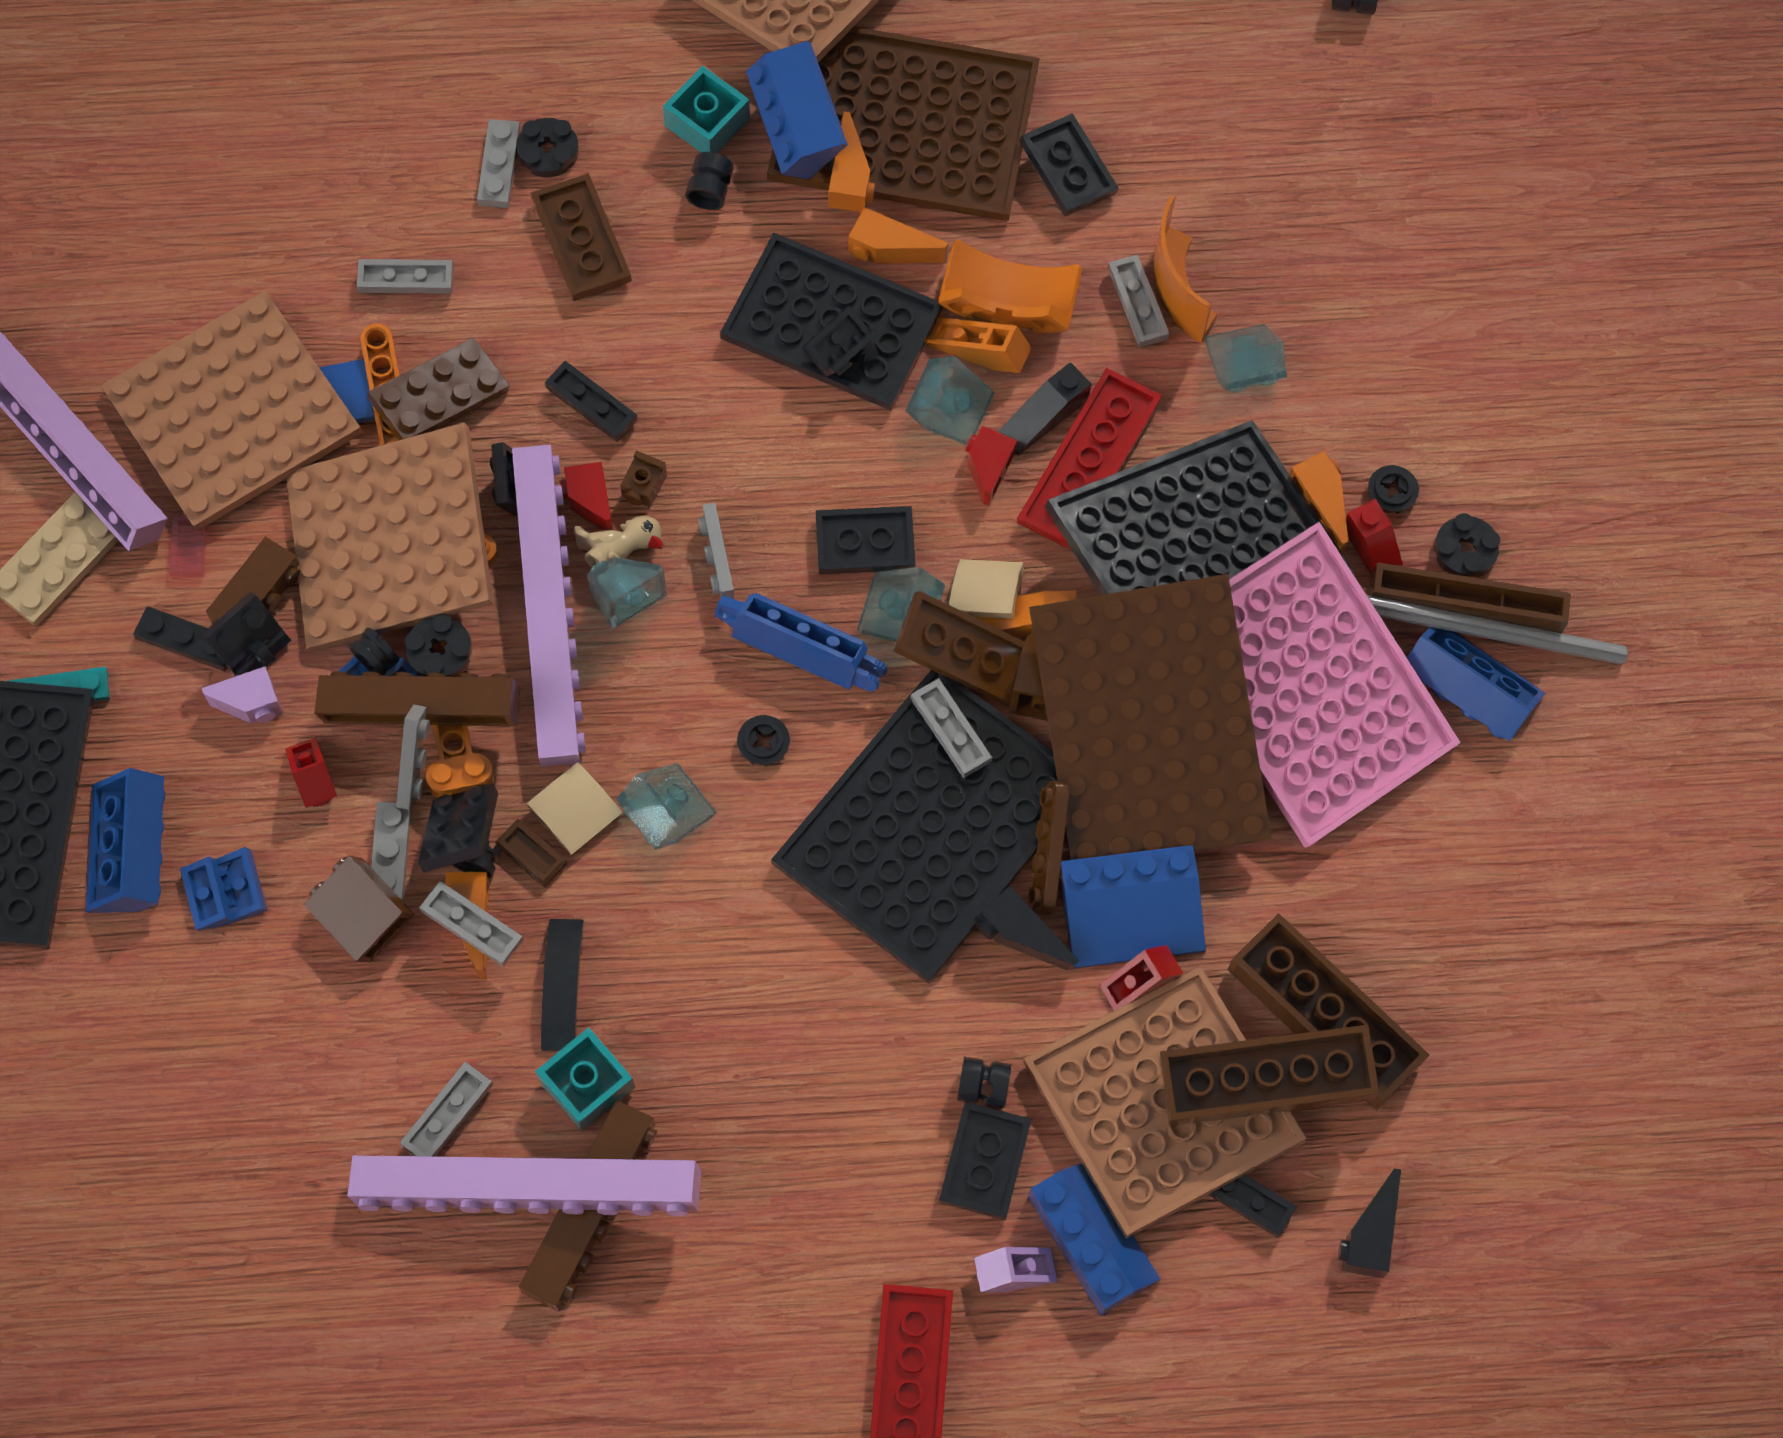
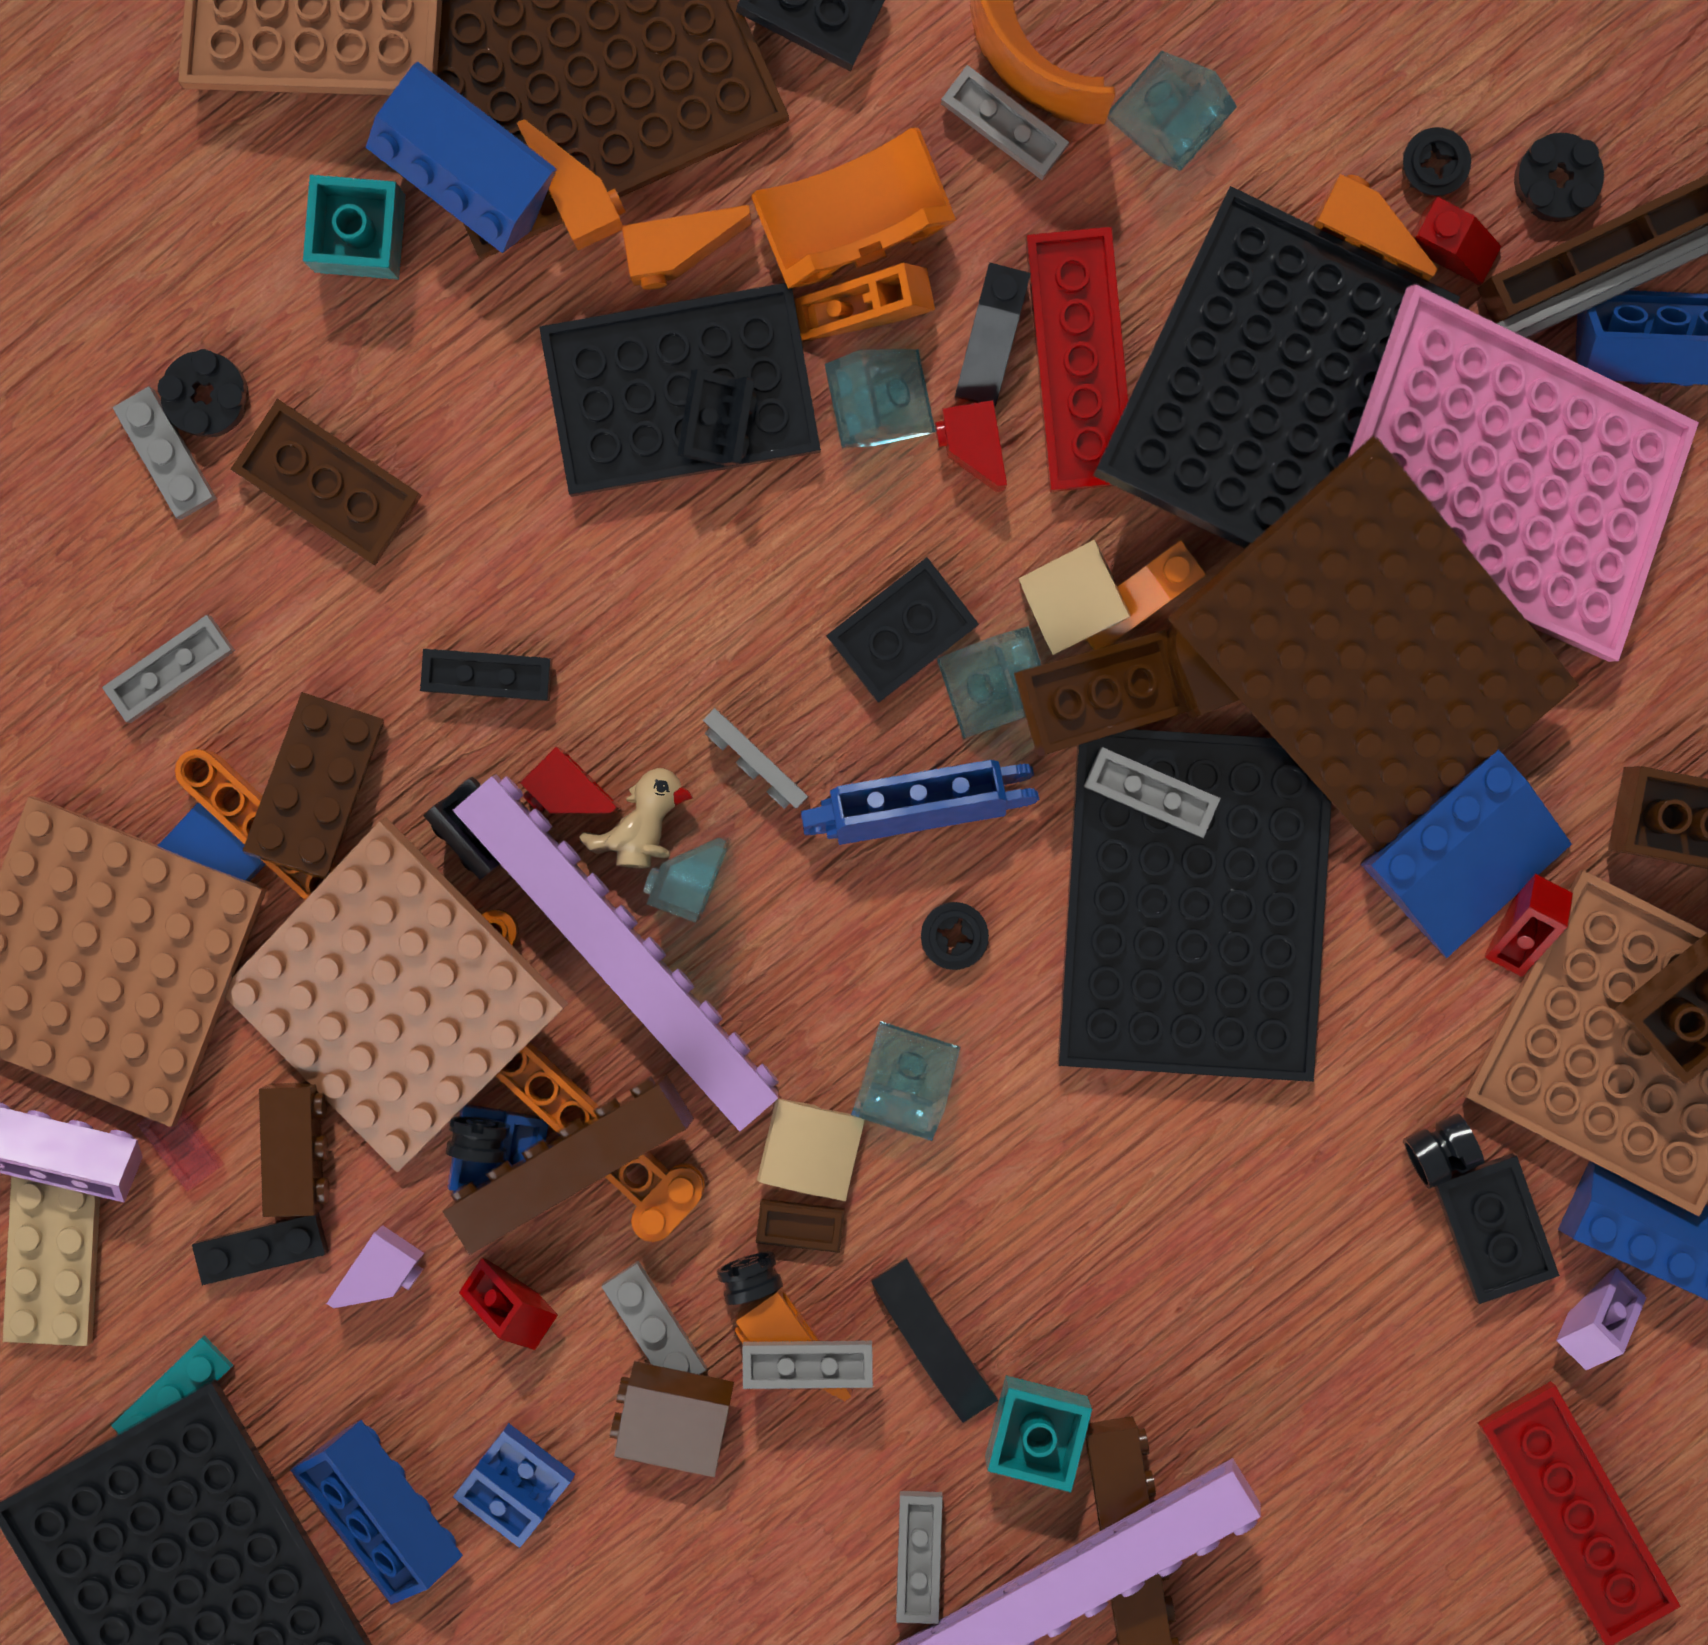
camera: 30 degrees left, 20 degrees up
(246, 636) = (329, 1214): black hinge -> none
(412, 757) = (610, 1229): light grey plate -> none
(438, 630) = (521, 1099): black plate -> none
(458, 827) = (716, 1271): black plate -> none
(644, 491) = (621, 715): reddish brown brick -> none
(710, 181) = (418, 306): black wheel -> none
(1019, 927) = (1372, 966): black slope -> none
(1050, 838) = (1346, 854): reddish brown plate -> none

